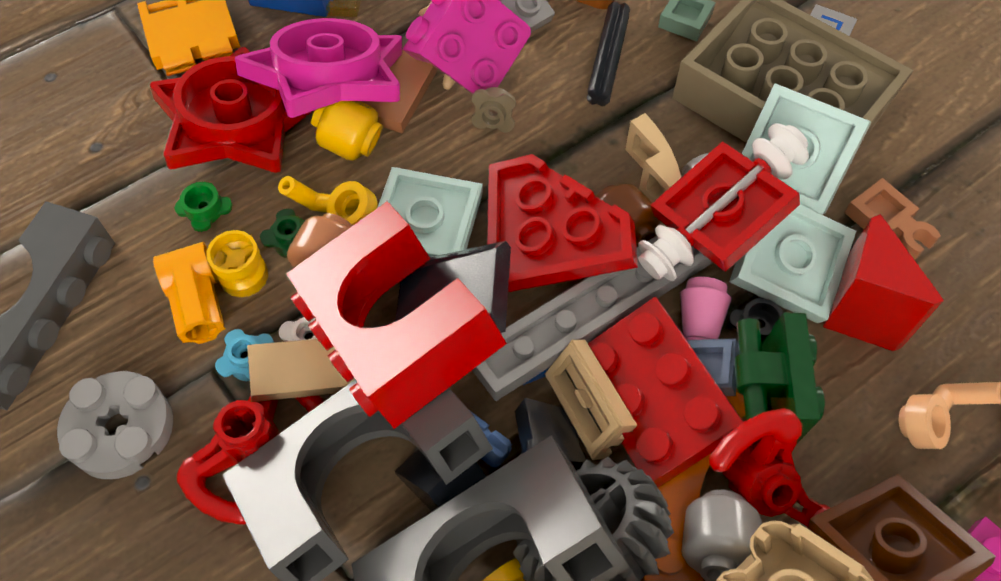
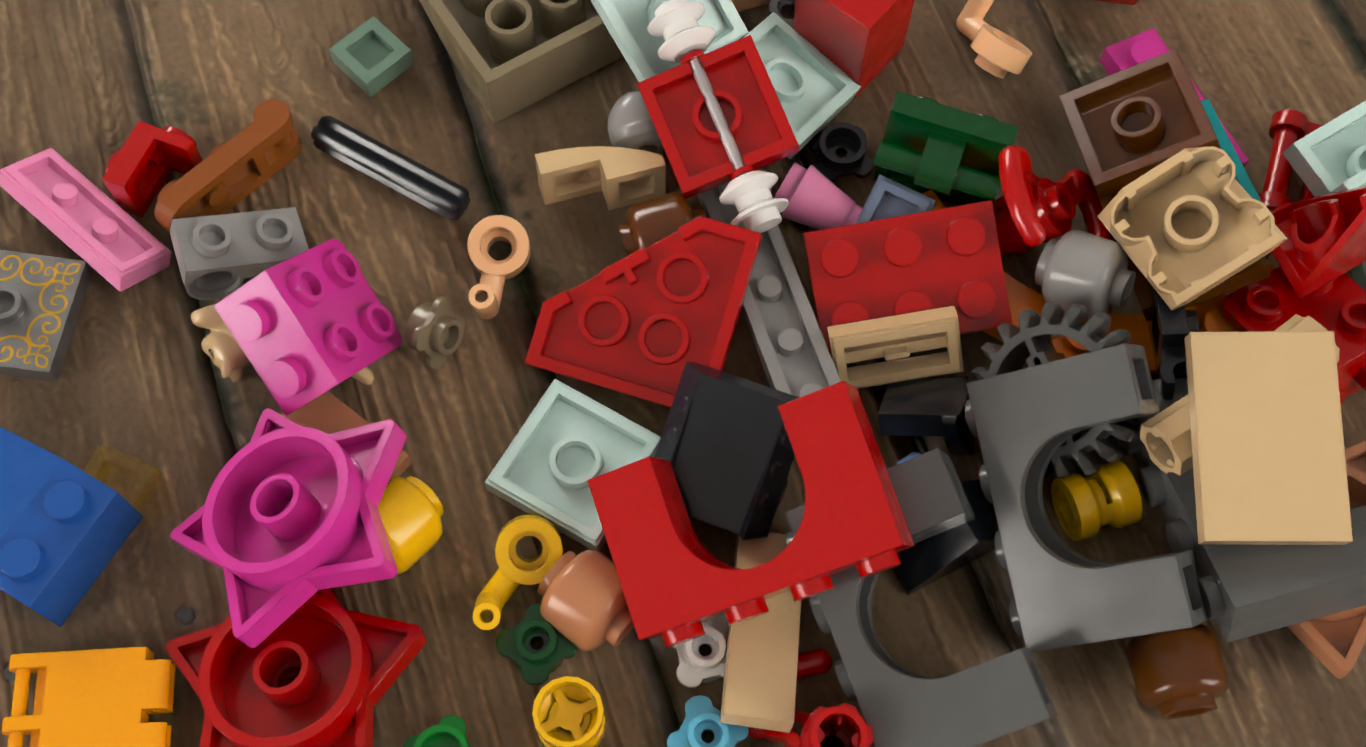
camera: 75 degrees left, 5 degrees up
(560, 120) = (488, 293): none -> light nougat plate

